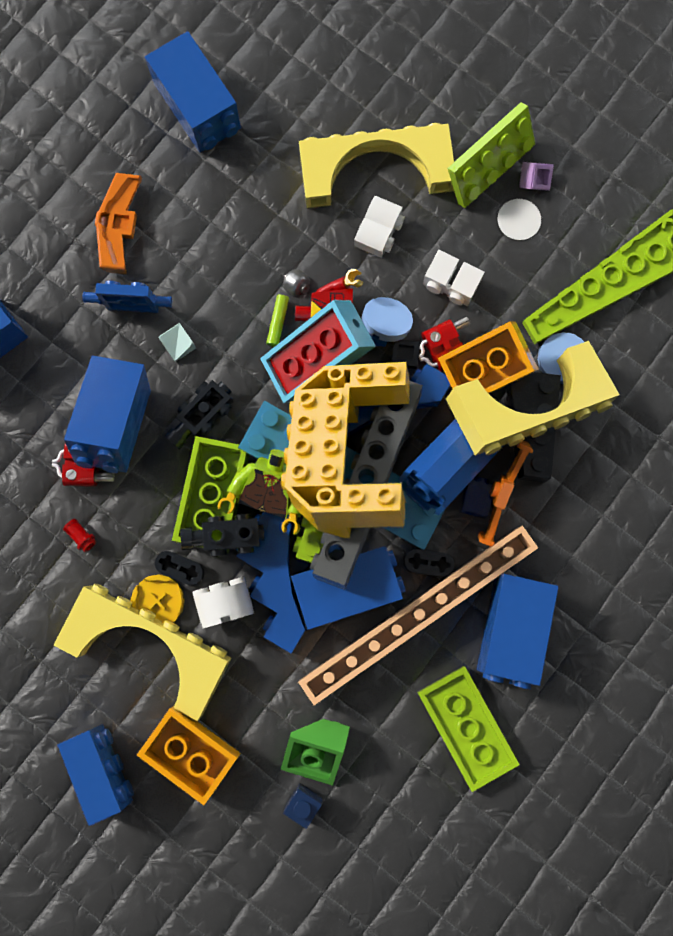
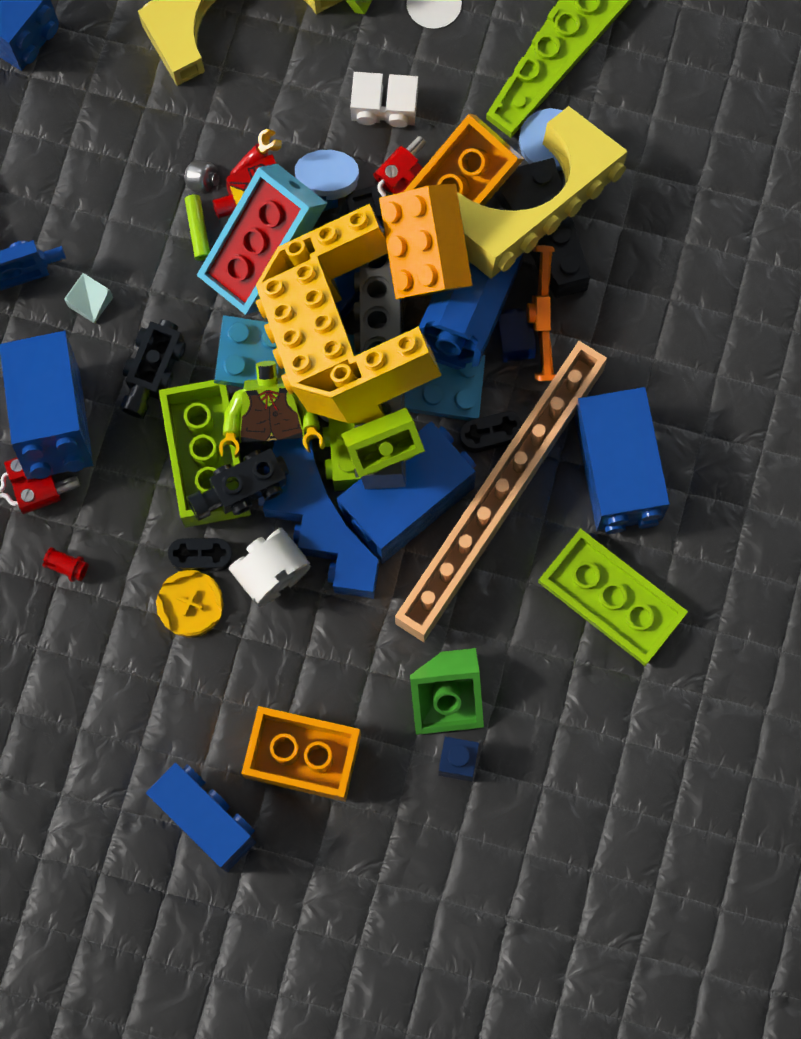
camera: 20 degrees left, 5 degrees down
(197, 663) = (127, 642): light yellow arch -> none
(337, 558) = (383, 442): none -> lime brick
(378, 227) = (272, 74): white brick -> none
(436, 409) = (425, 241): none -> light orange brick

